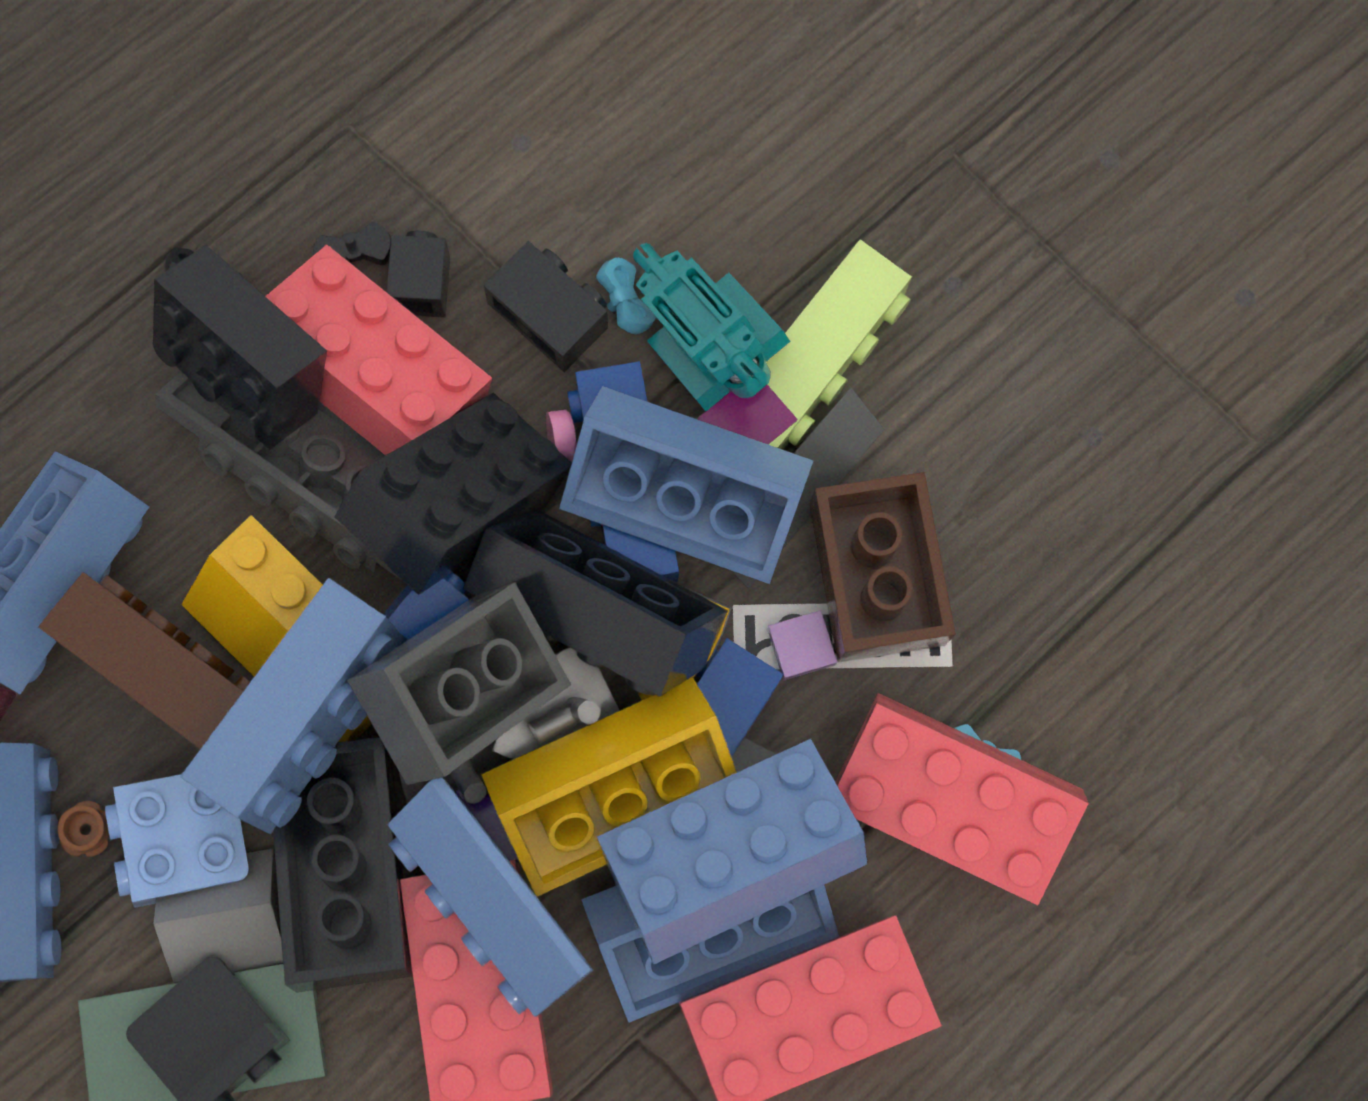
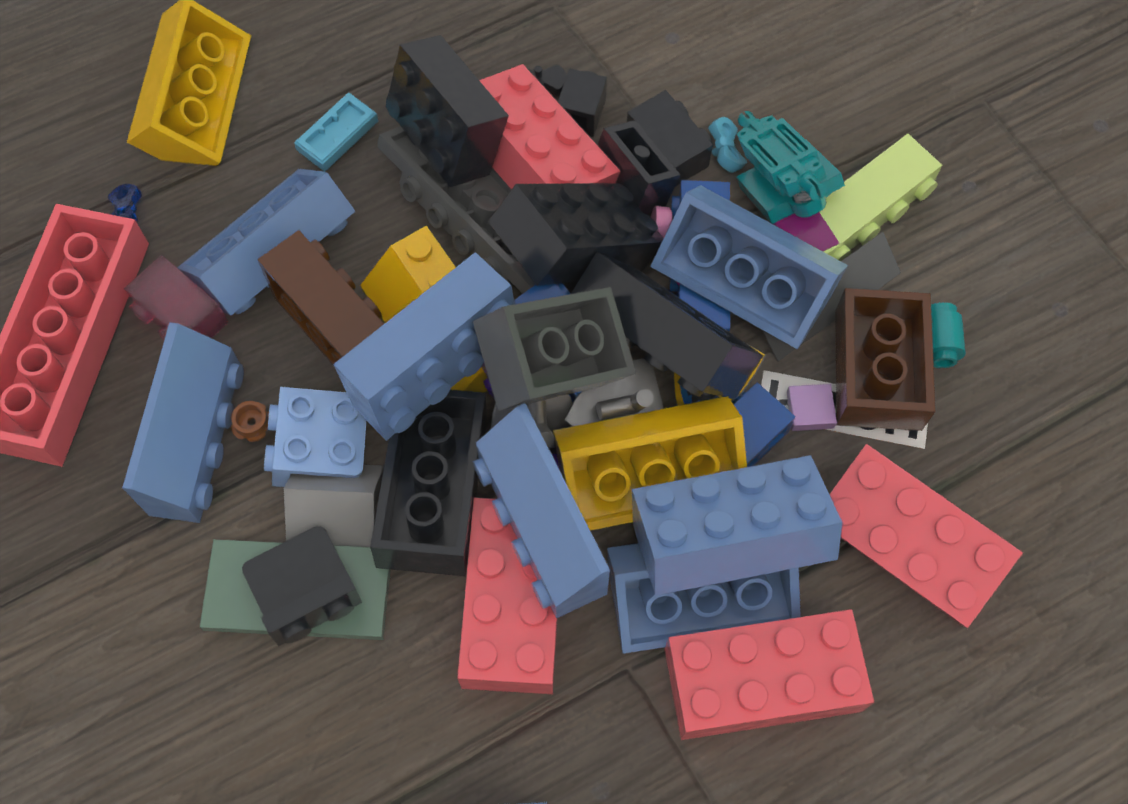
camera: 20 degrees right, 10 degrees down
(93, 388) = (336, 131): none -> medium azure plate
(519, 361) = (640, 163): none -> black brick
(953, 513) = (947, 335): none -> teal brick

